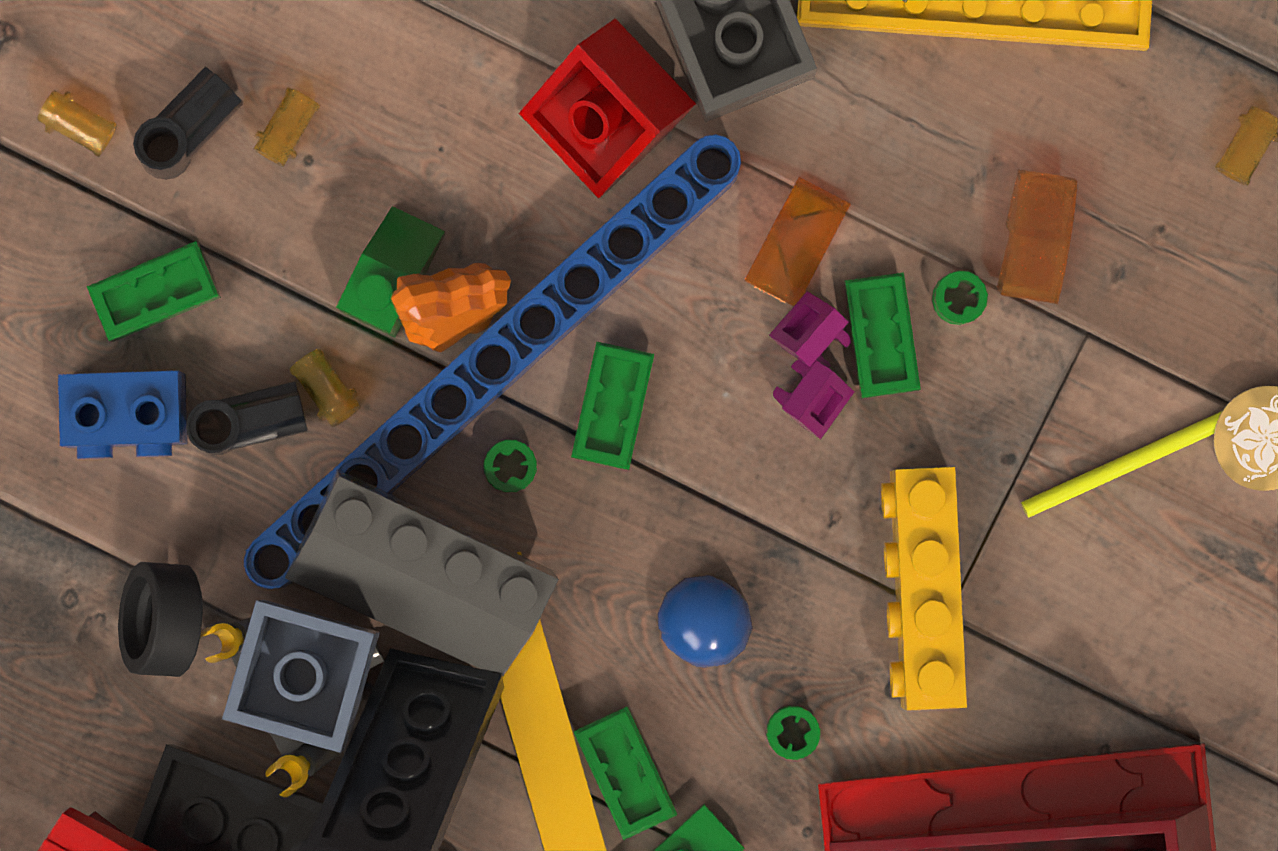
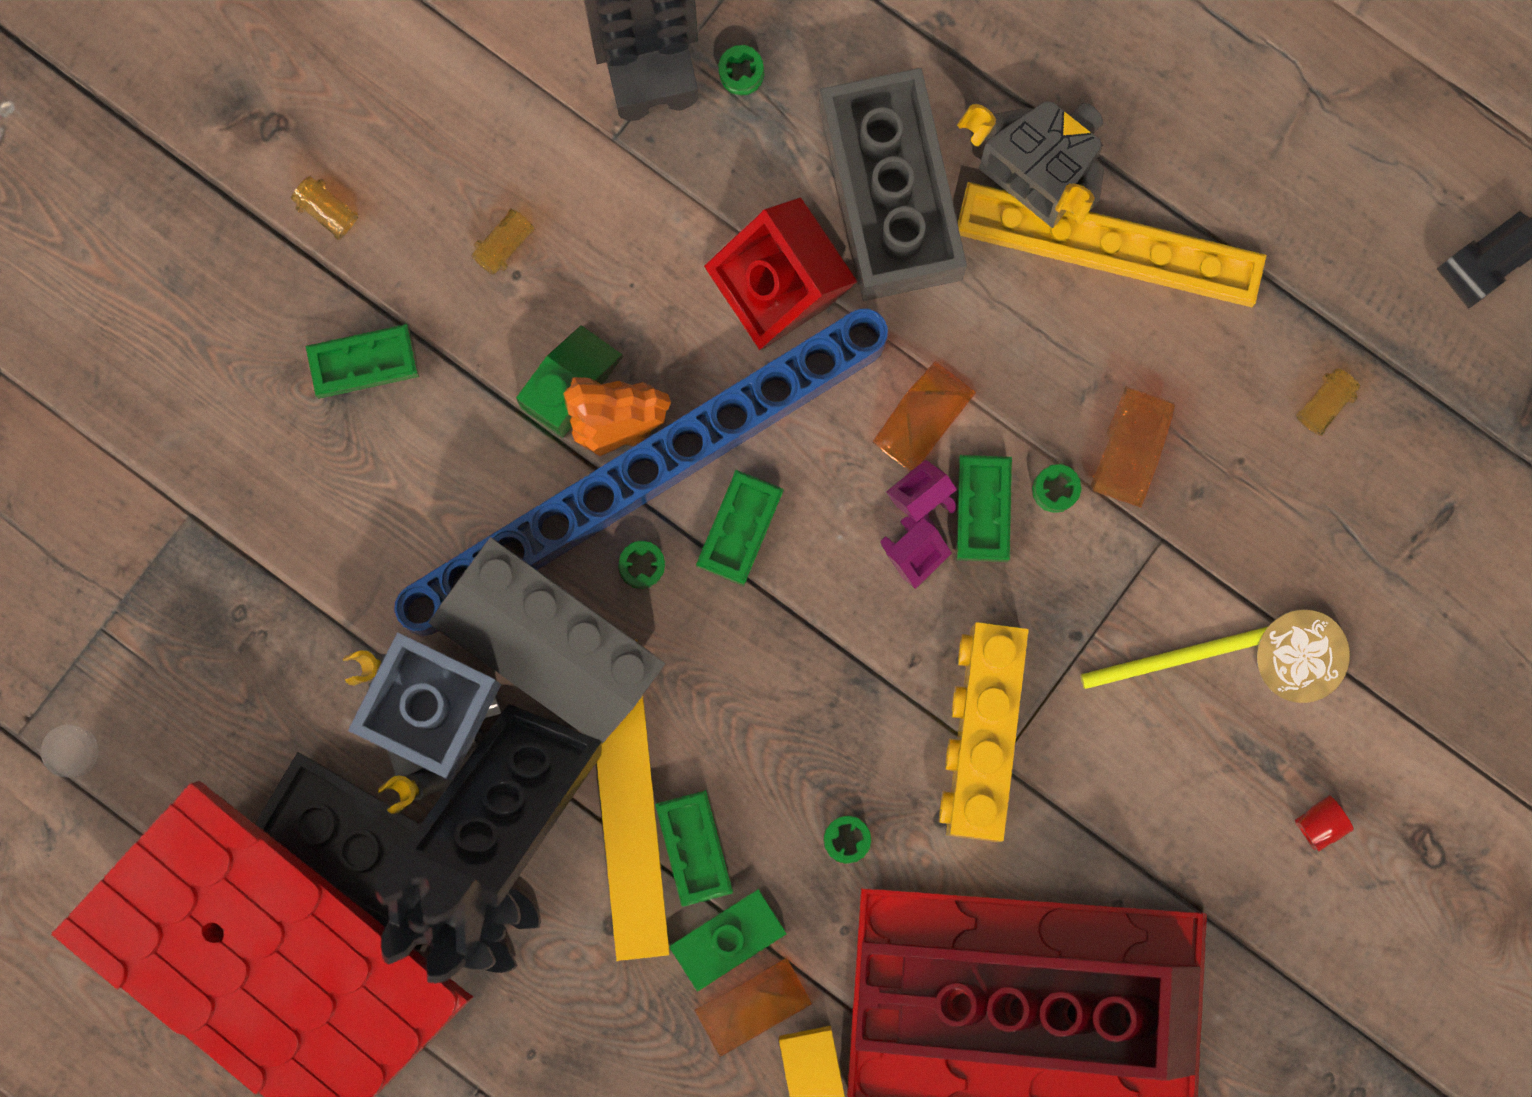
camera: 10 degrees right, 5 degrees down
(122, 411) = (315, 458): blue brick -> none
(160, 619) = (313, 640): black tyre -> none
(189, 119) = (420, 220): black piece -> none
(253, 417) = (428, 483): black piece -> none
(325, 388) = (494, 469): clear yellow pin -> none
(705, 621) = (787, 729): blue hair -> none

